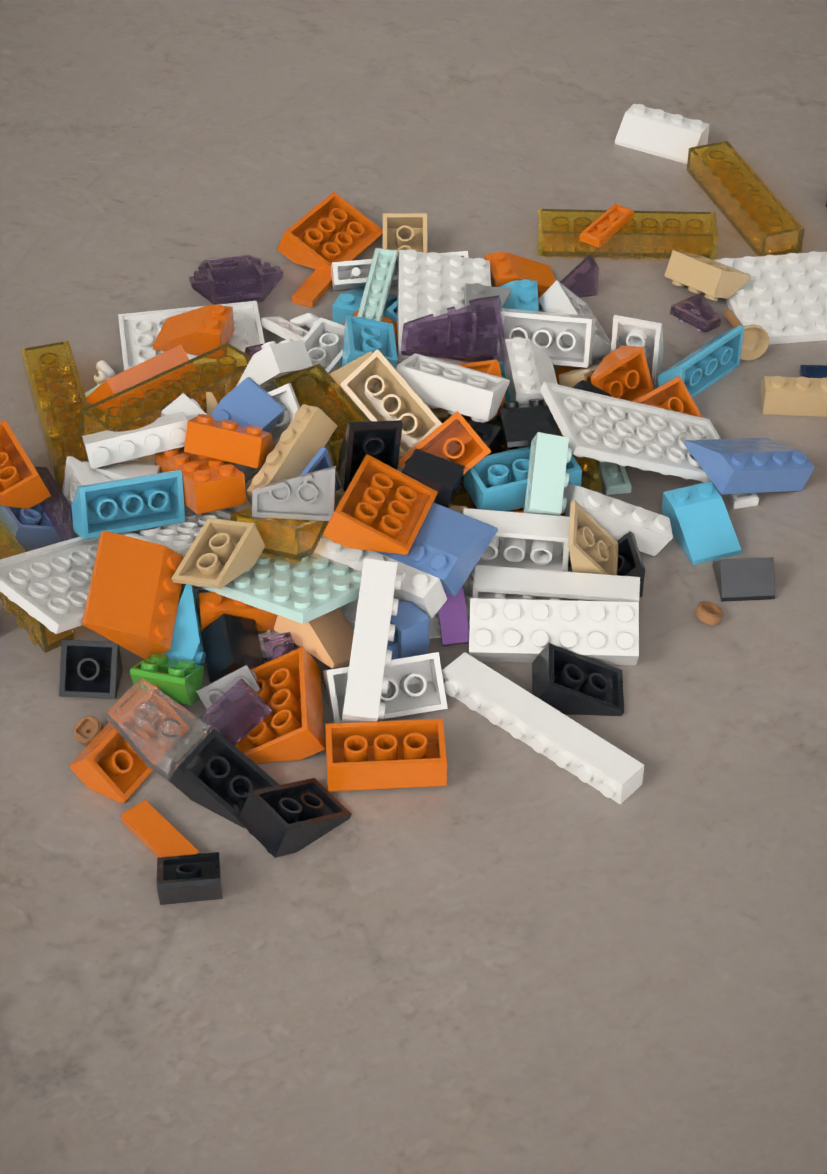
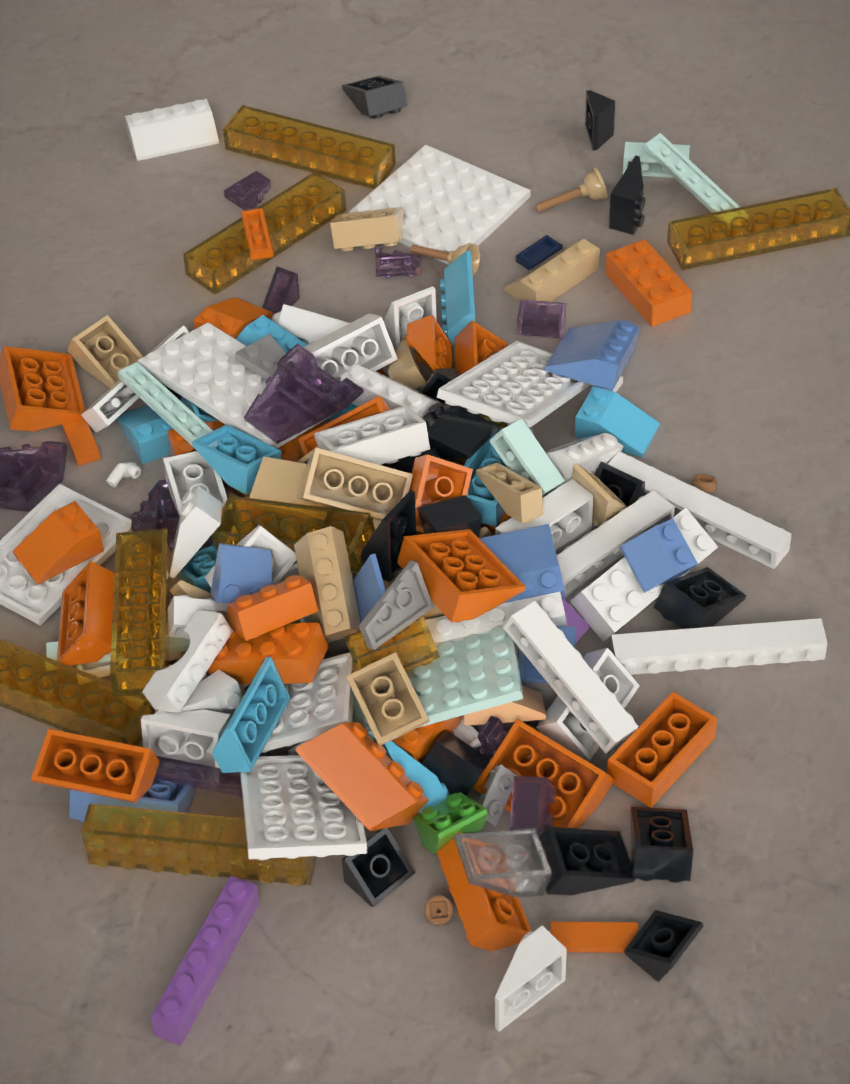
camera: 45 degrees left, 5 degrees up
(63, 813) = (532, 974): none -> white slope
(105, 372) = (22, 634): white arm -> none
(283, 328) = (126, 490): white tile -> none
(500, 489) = (513, 492): none -> tan slope
(560, 615) = (658, 555): none -> medium blue slope
(664, 202) = (248, 191): none -> clear purple wing
(674, 630) = (718, 518): none -> white brick
(745, 579) = (690, 440): black slope -> none
(751, 416) = (541, 319): none -> clear purple brick

